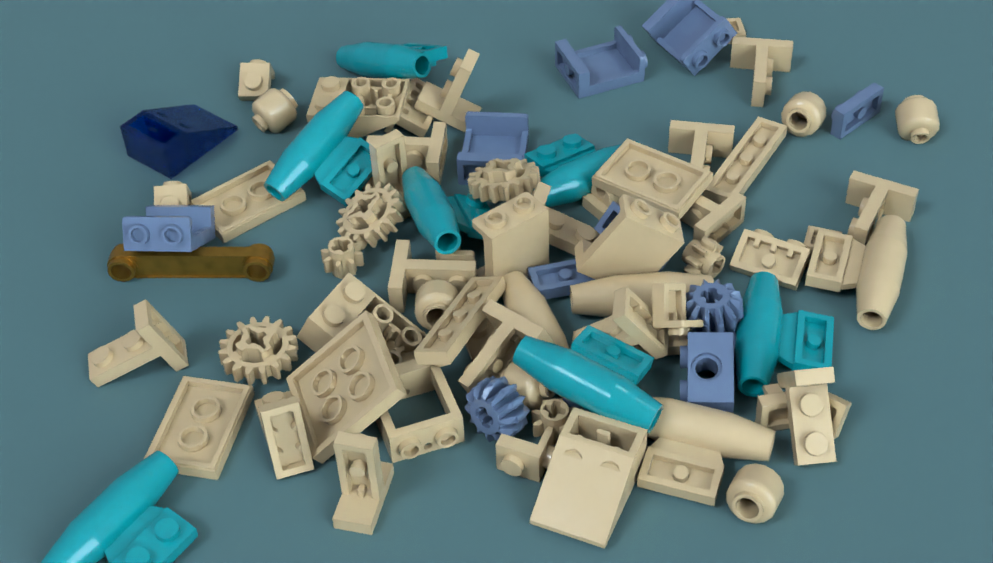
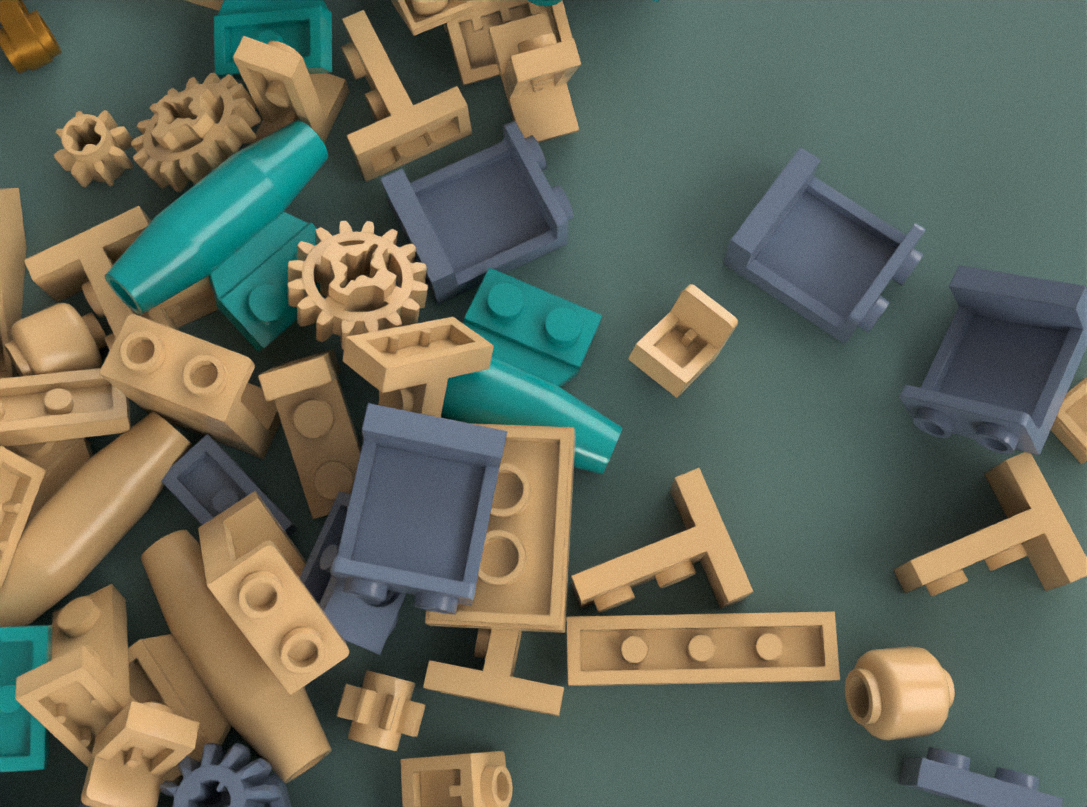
camera: 60 degrees right, 30 degrees up
(575, 185) = (416, 360): none -> tan bracket
(606, 111) = (684, 341): none -> tan bracket
(614, 172) = (419, 508): none -> sand blue panel

